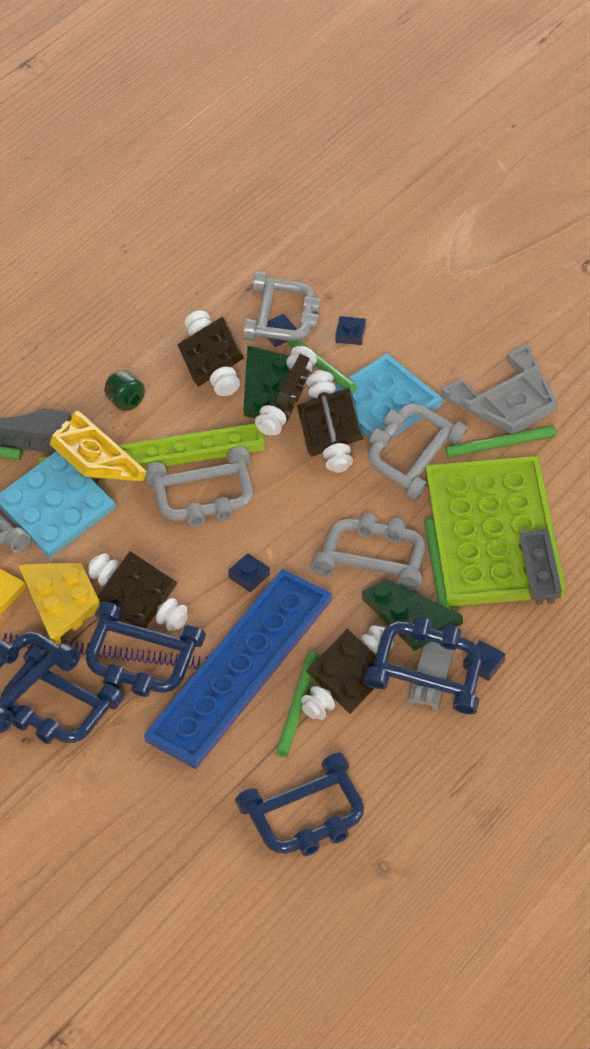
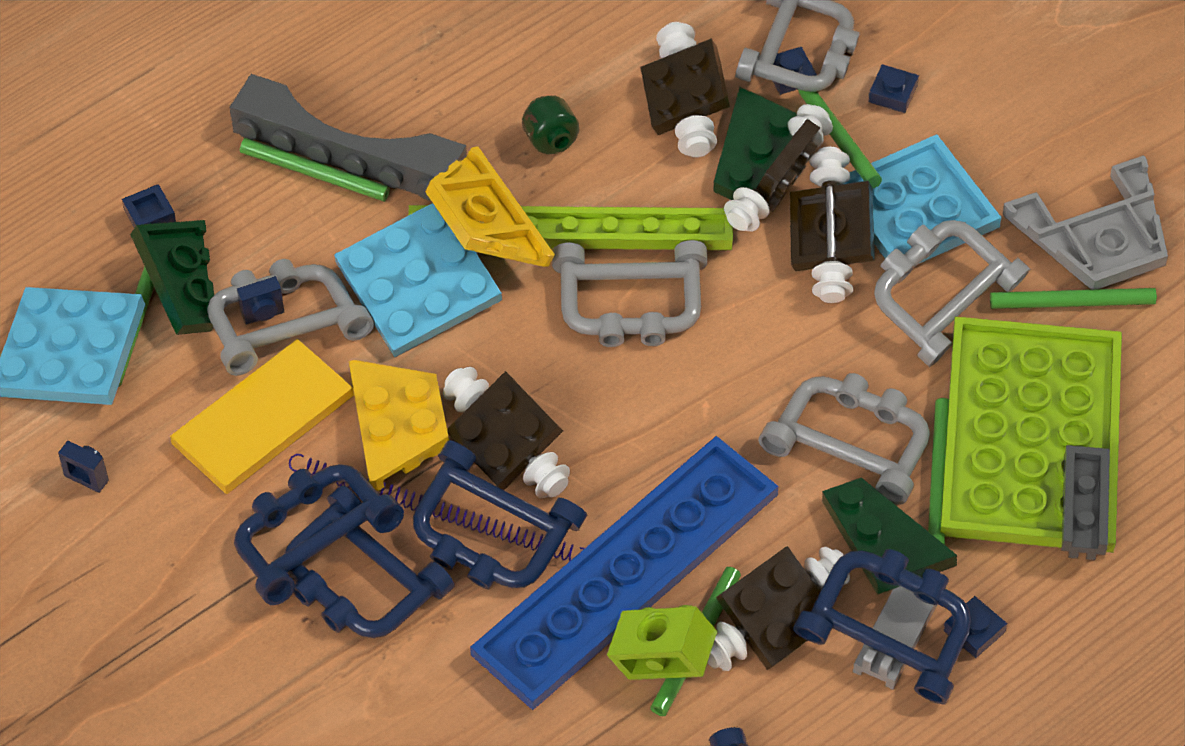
camera: 10 degrees right, 5 degrees up
(249, 572) = (669, 431): dark blue plate -> none
(276, 707) = (662, 643): none -> lime brick

